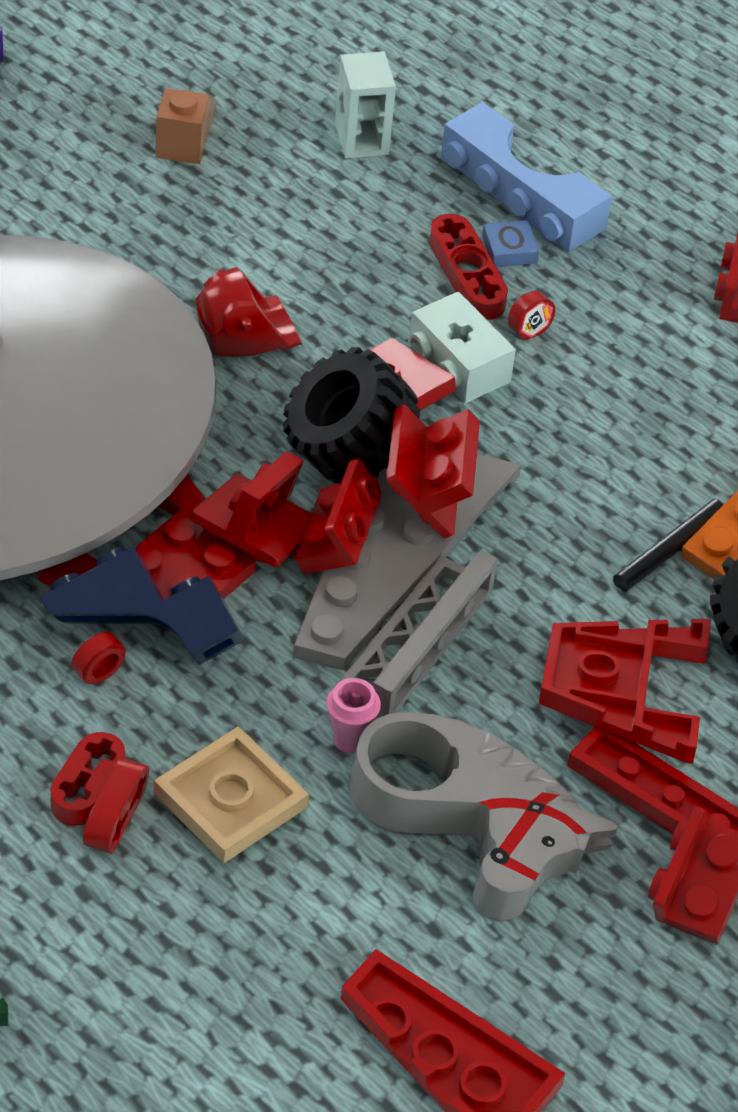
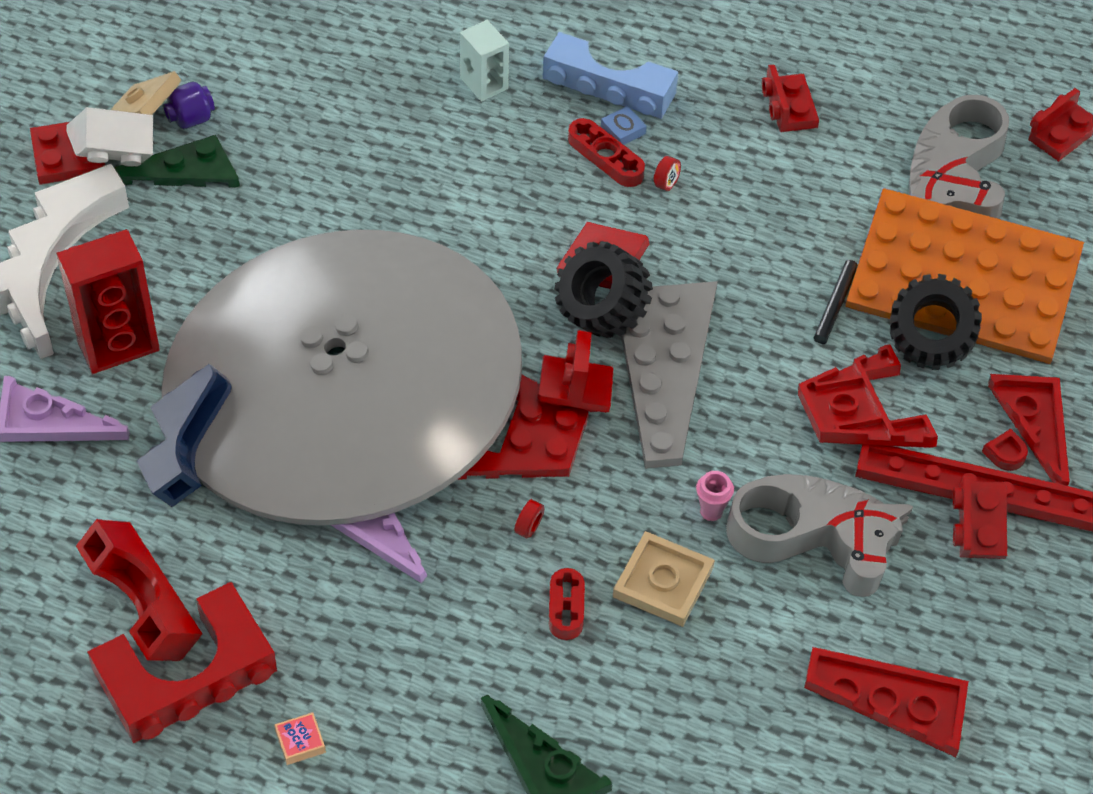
camera: 20 degrees left, 5 degrees up
(115, 805) = (597, 615): red beam -> none
(125, 593) = (526, 466): dark blue arch -> none
(183, 125) = (367, 116): nougat slope -> none
(241, 319) = (487, 242): red helmet -> none
(340, 521) = (632, 366): red bracket -> none
(432, 637) = (729, 419): light grey fence -> none
(433, 464) = (681, 304): red bracket -> none
(463, 344) = (637, 210): light aqua brick -> none

